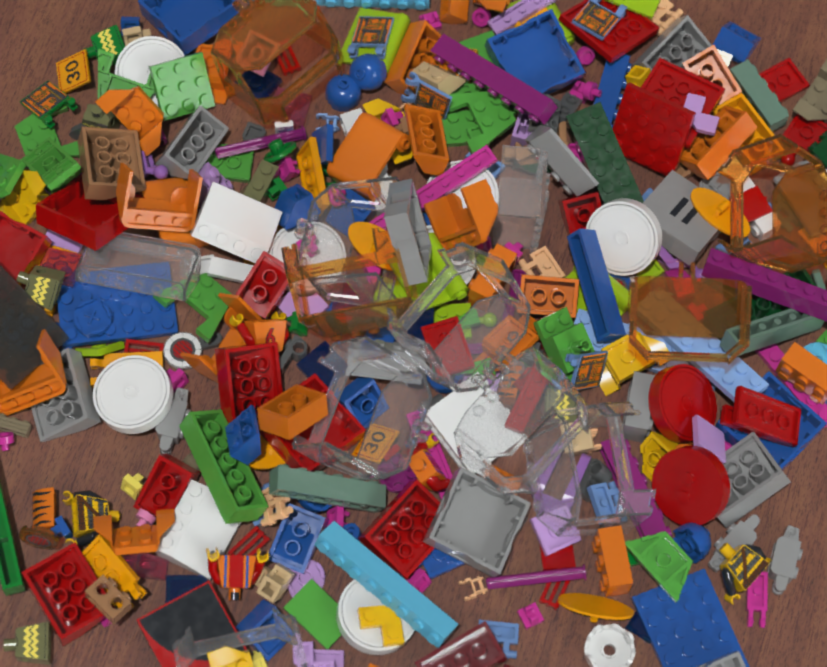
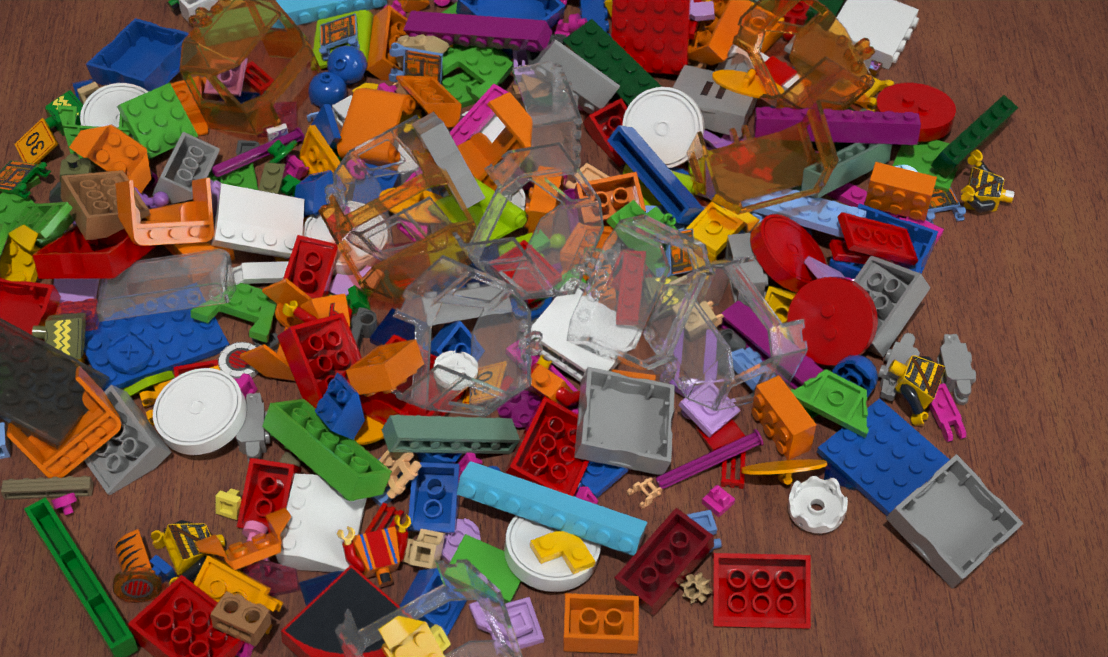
camera: 15 degrees left, 15 degrees down
(354, 425) = (458, 362): none -> white tile

